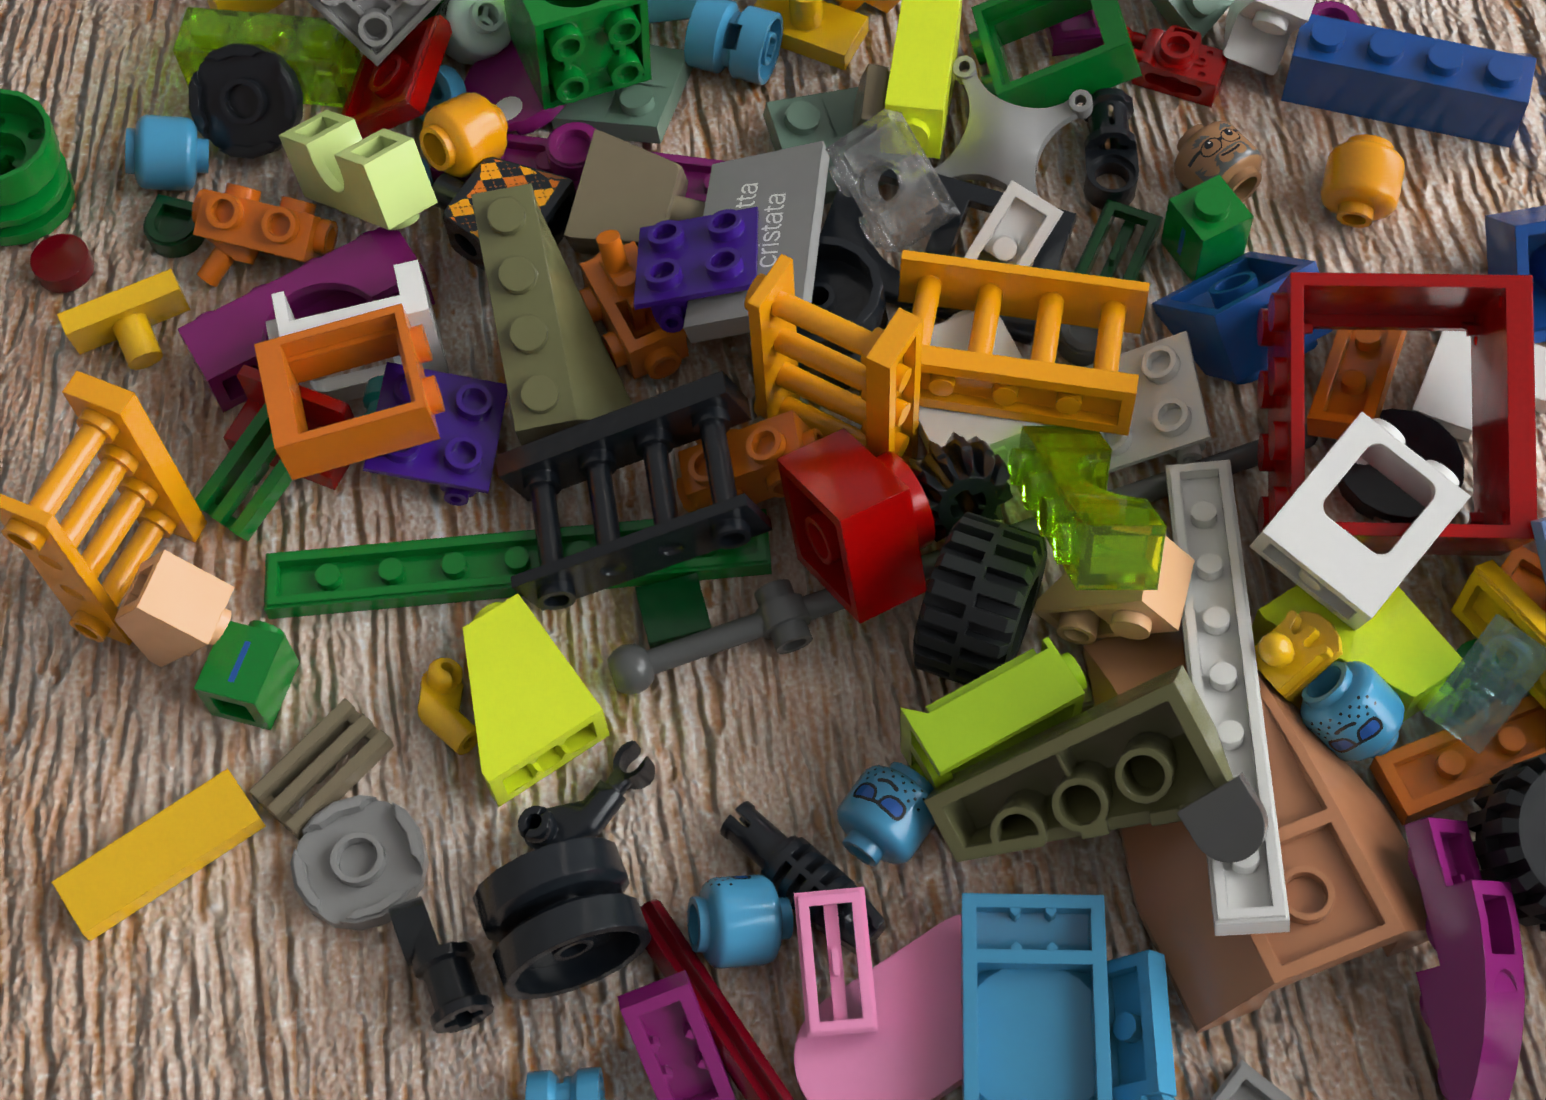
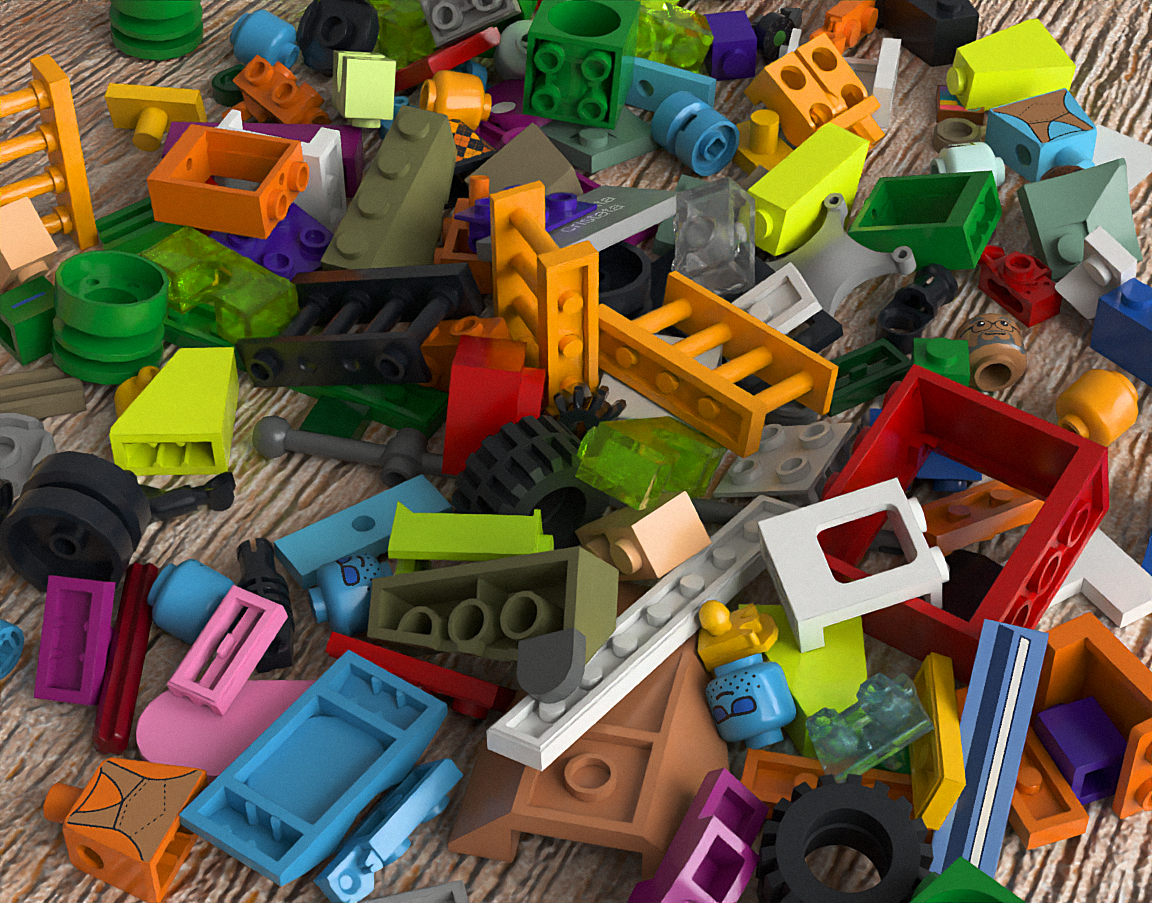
camera: 30 degrees right, 20 degrees down
(62, 263) = (150, 72): dark red tile -> none
(352, 632) = (108, 315): none -> green wheel
(382, 511) = (245, 295): none -> clear neon green arch
(832, 697) = (355, 530): none -> medium azure tile
(1017, 872) = (470, 694): none -> red tile

